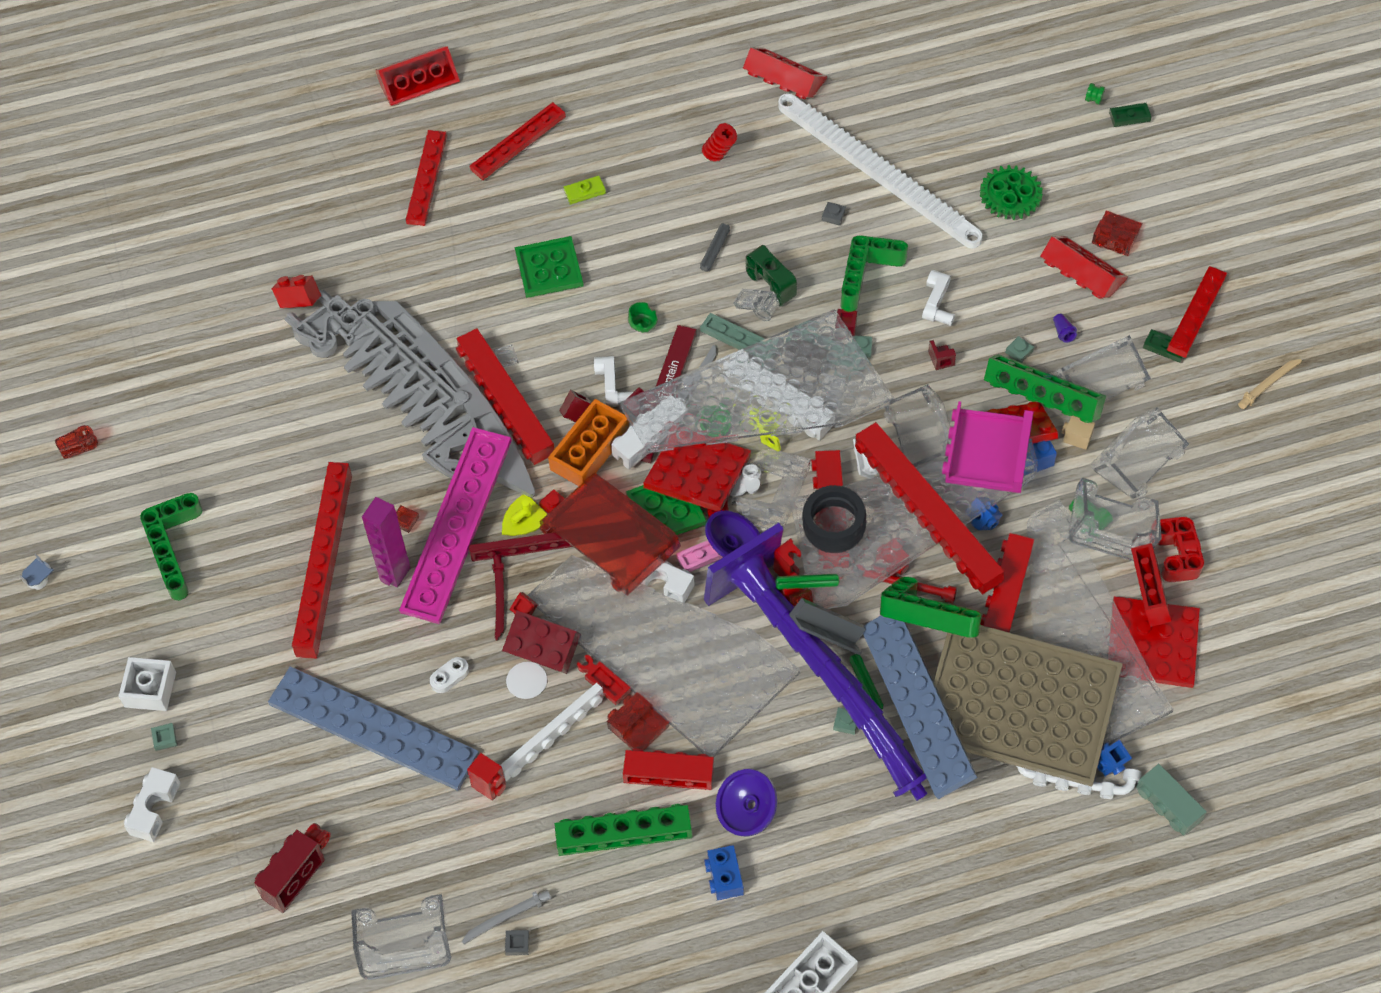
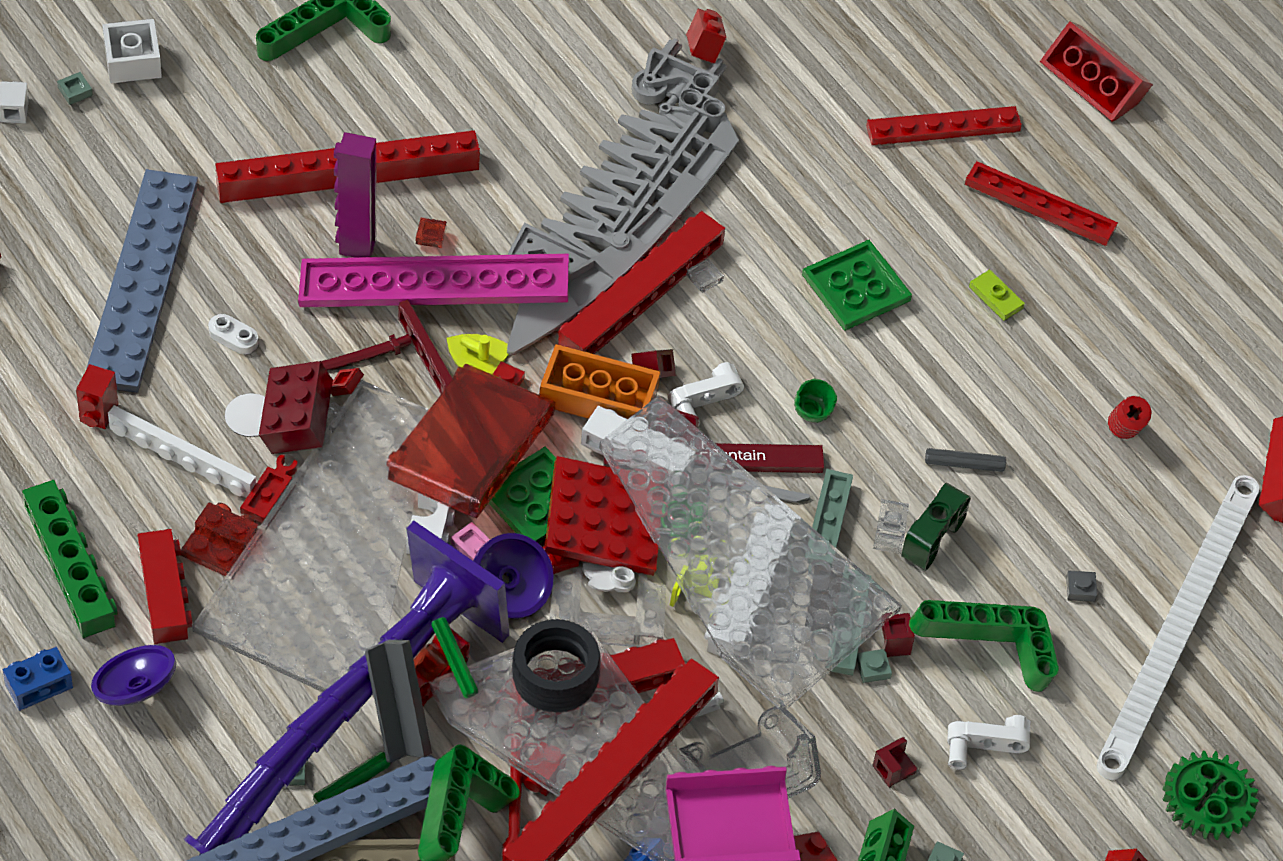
camera: 65 degrees right, 5 degrees down
(784, 559) = (493, 638): red hinge -> none

